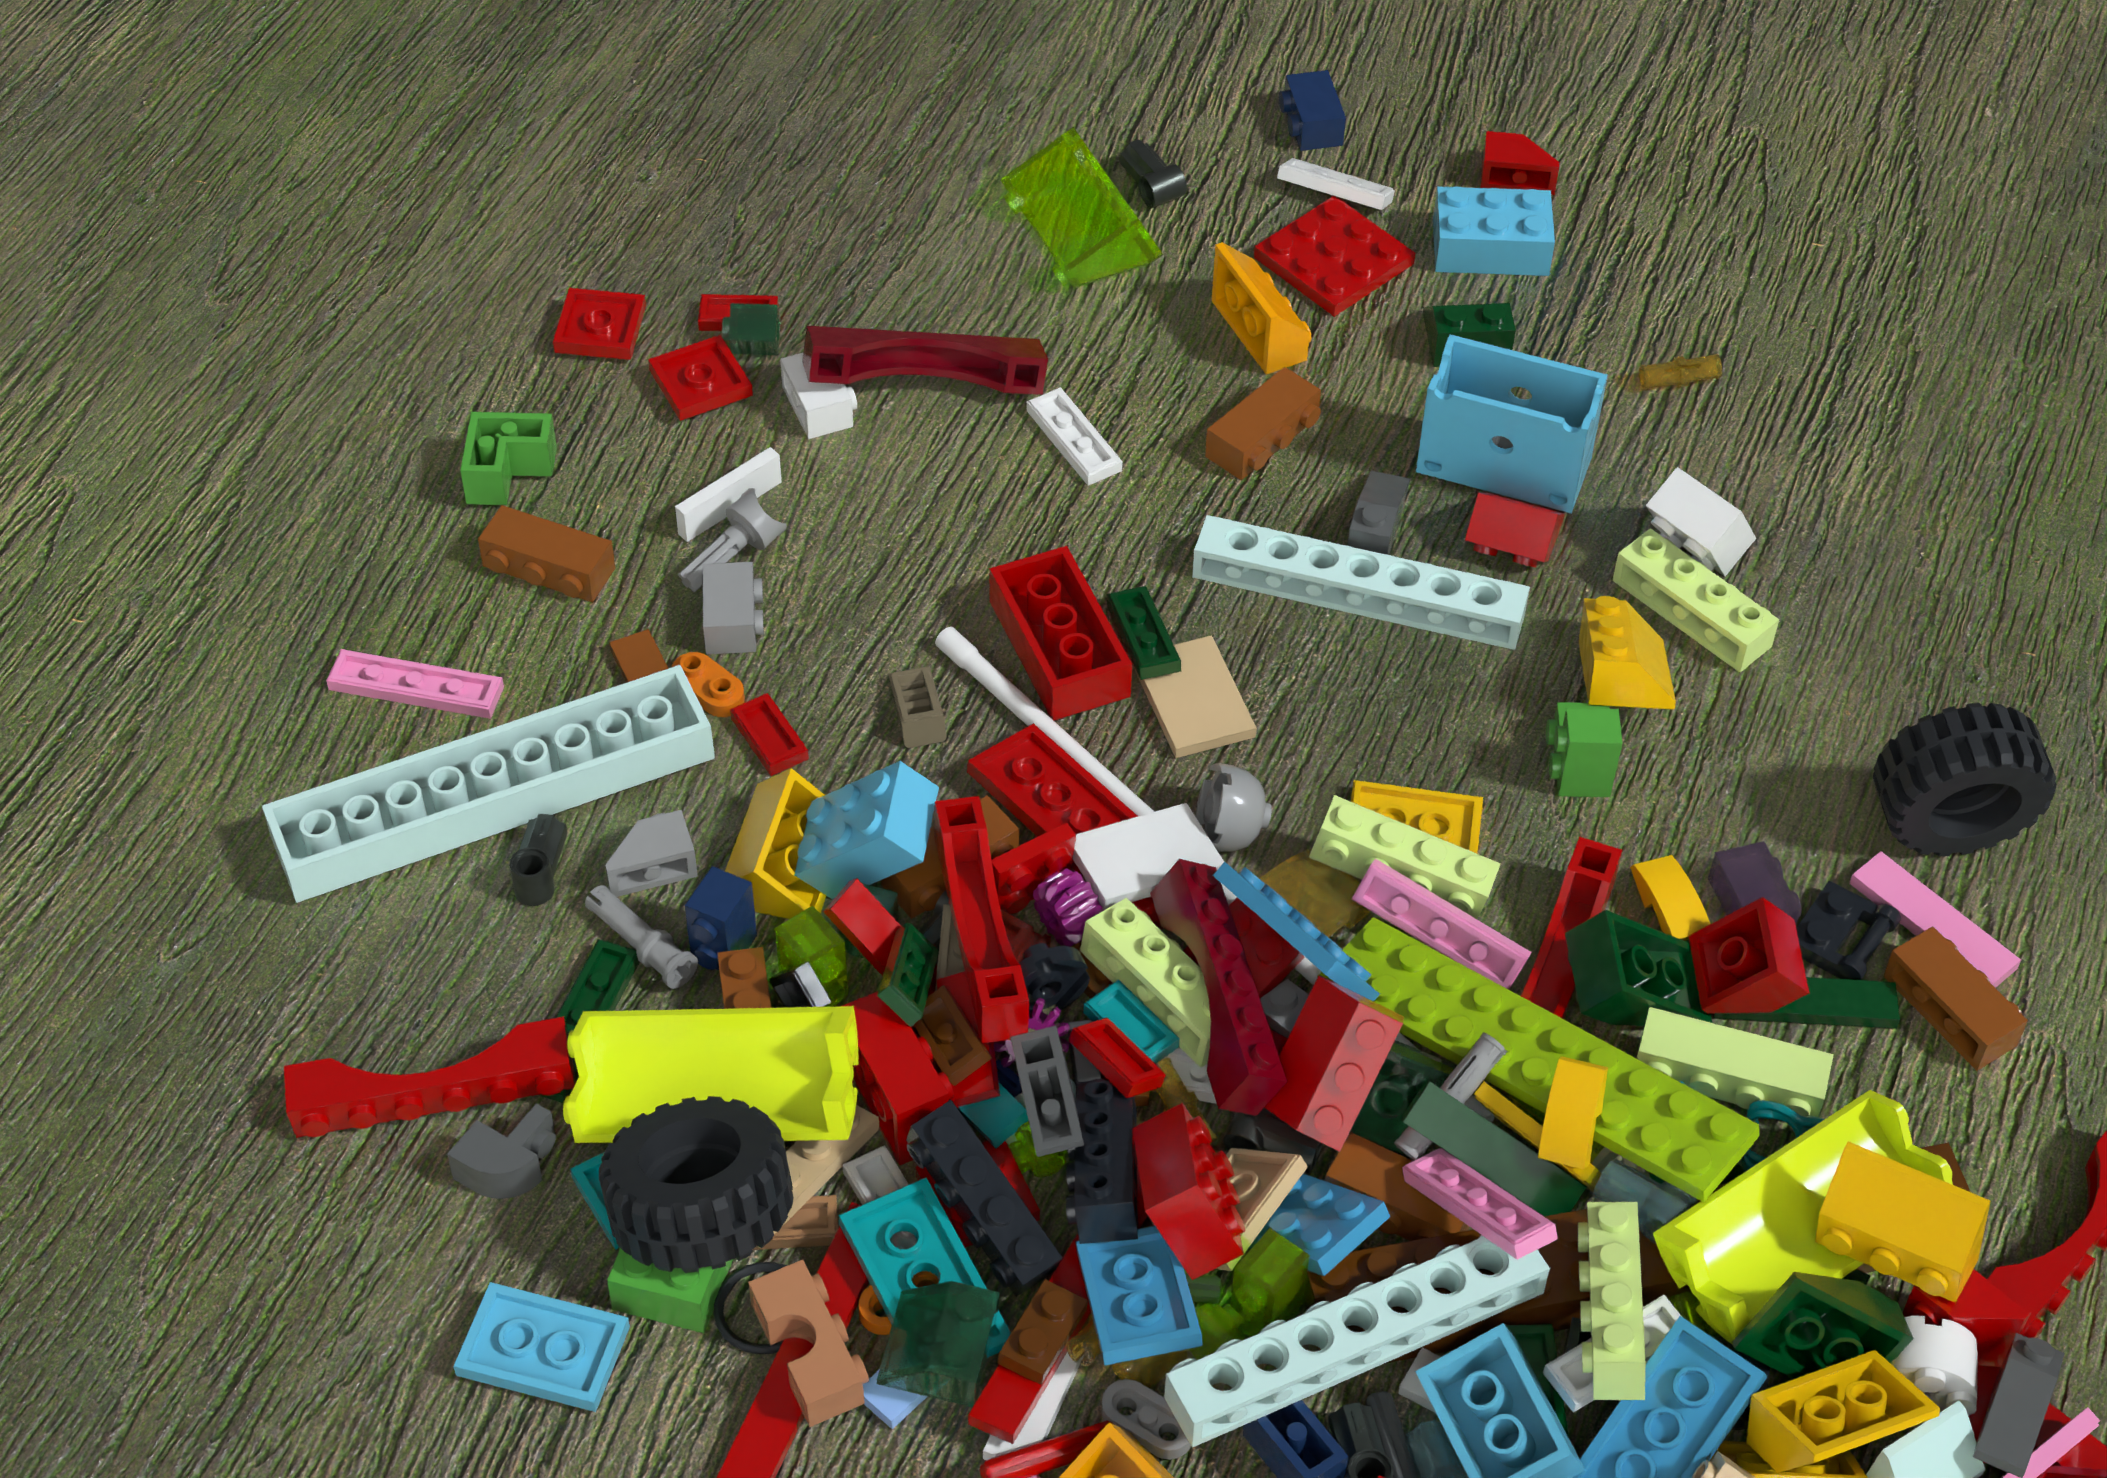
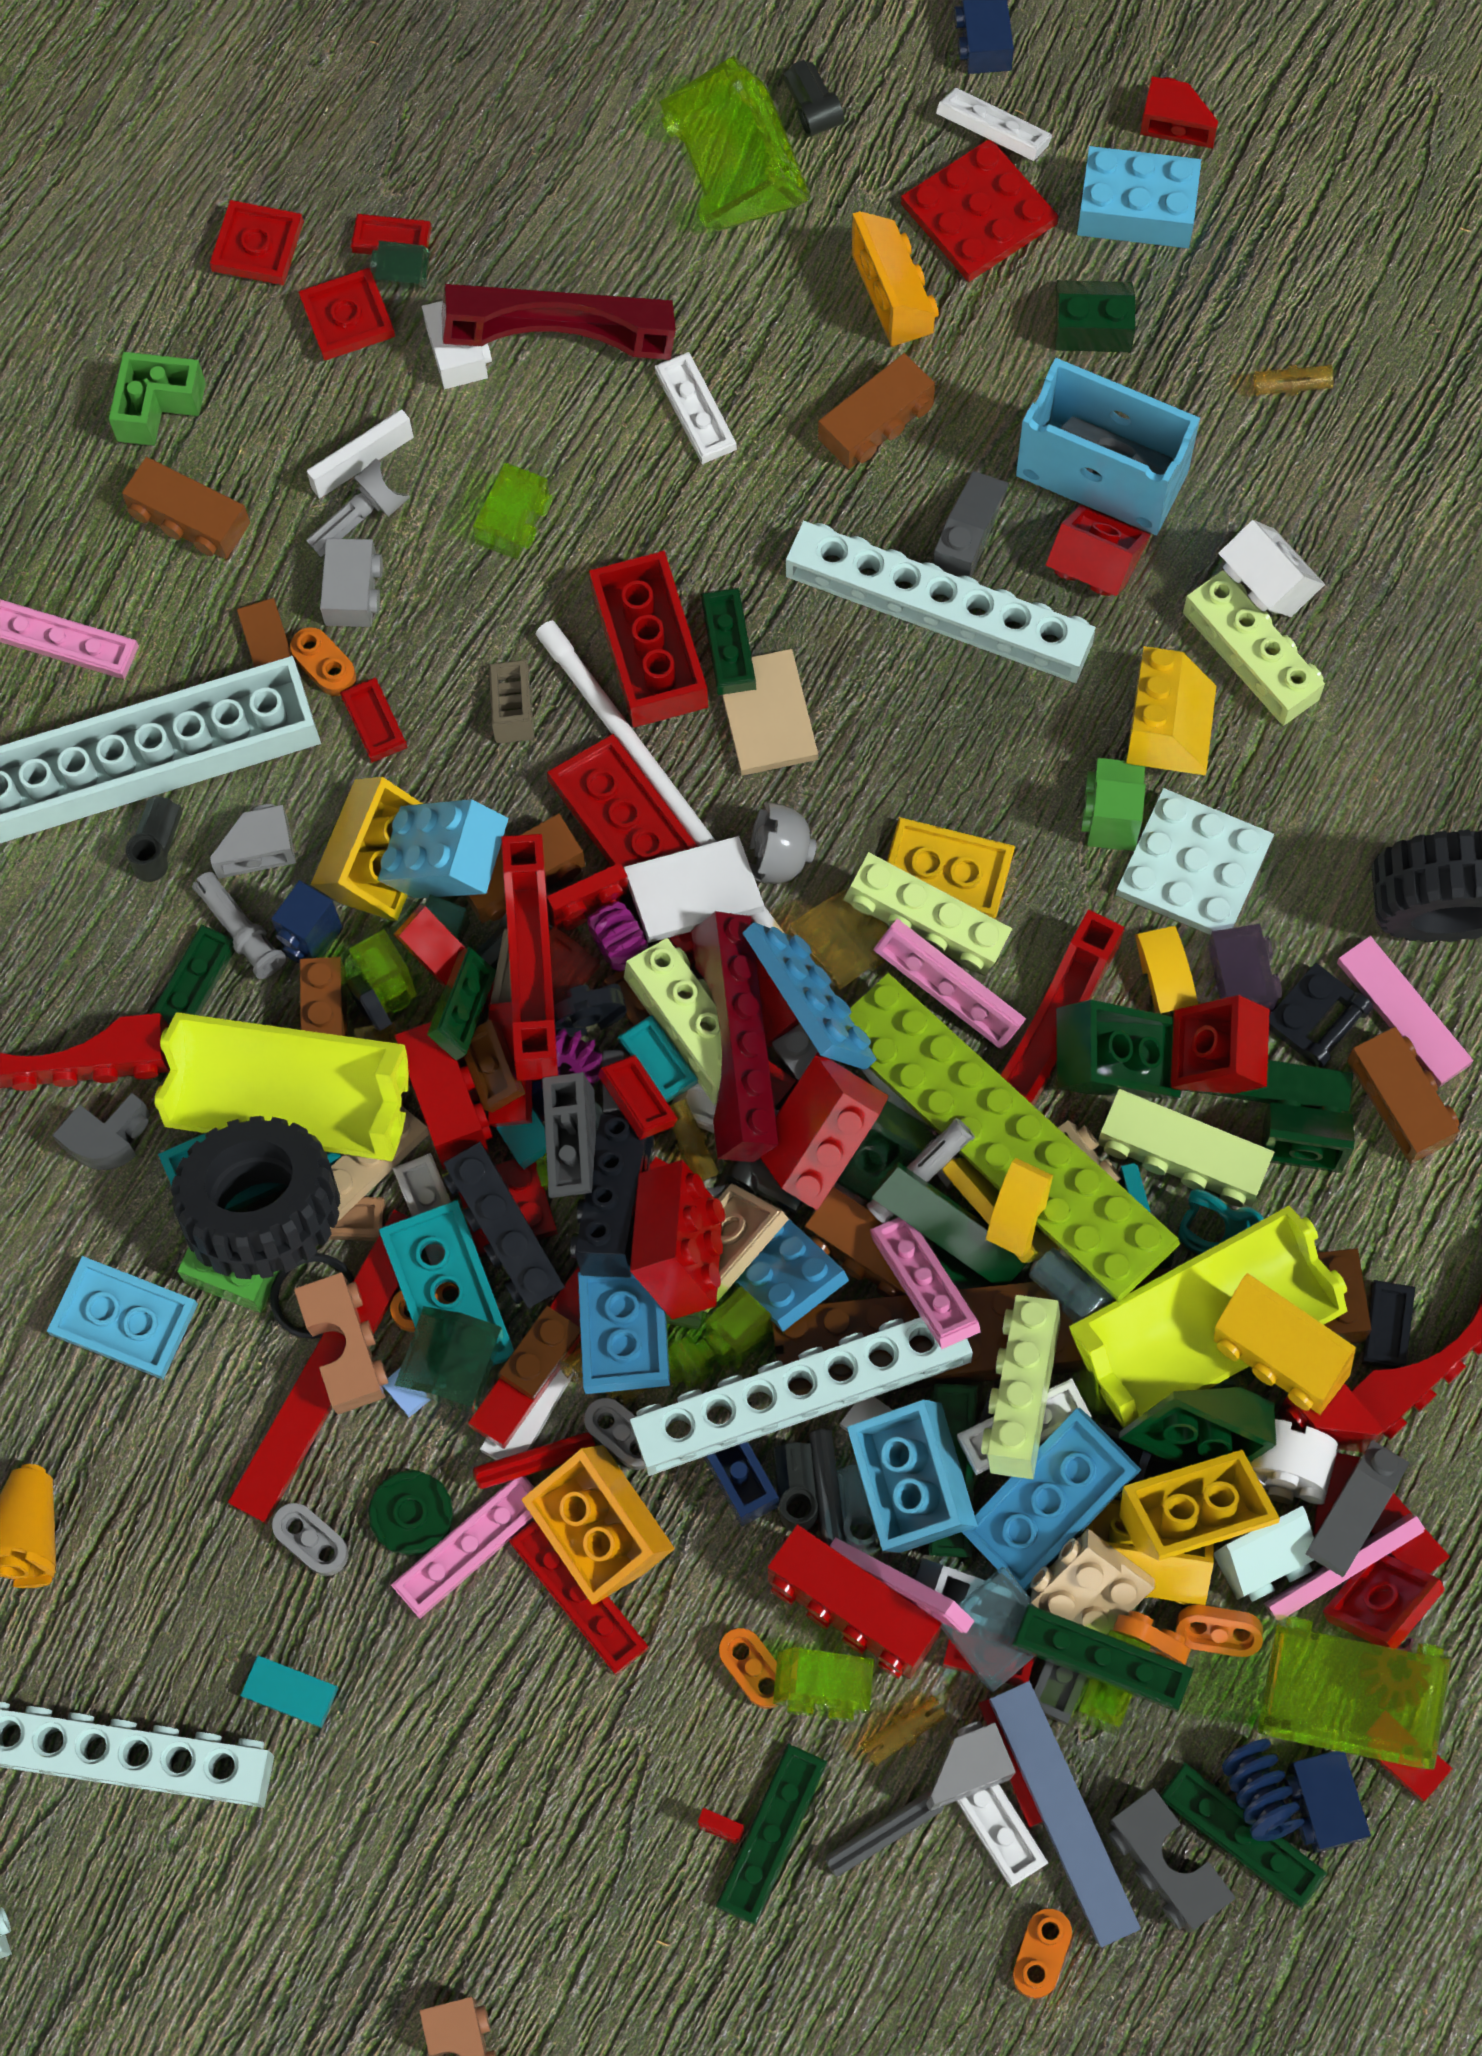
camera: 10 degrees right, 20 degrees up
(896, 533) = (512, 511): none -> clear neon green brick
(1676, 801) = (1194, 863): none -> light aqua plate
(1866, 1045) = (1308, 1136): none -> dark green slope
(2003, 1230) = (1390, 1323): none -> black tile

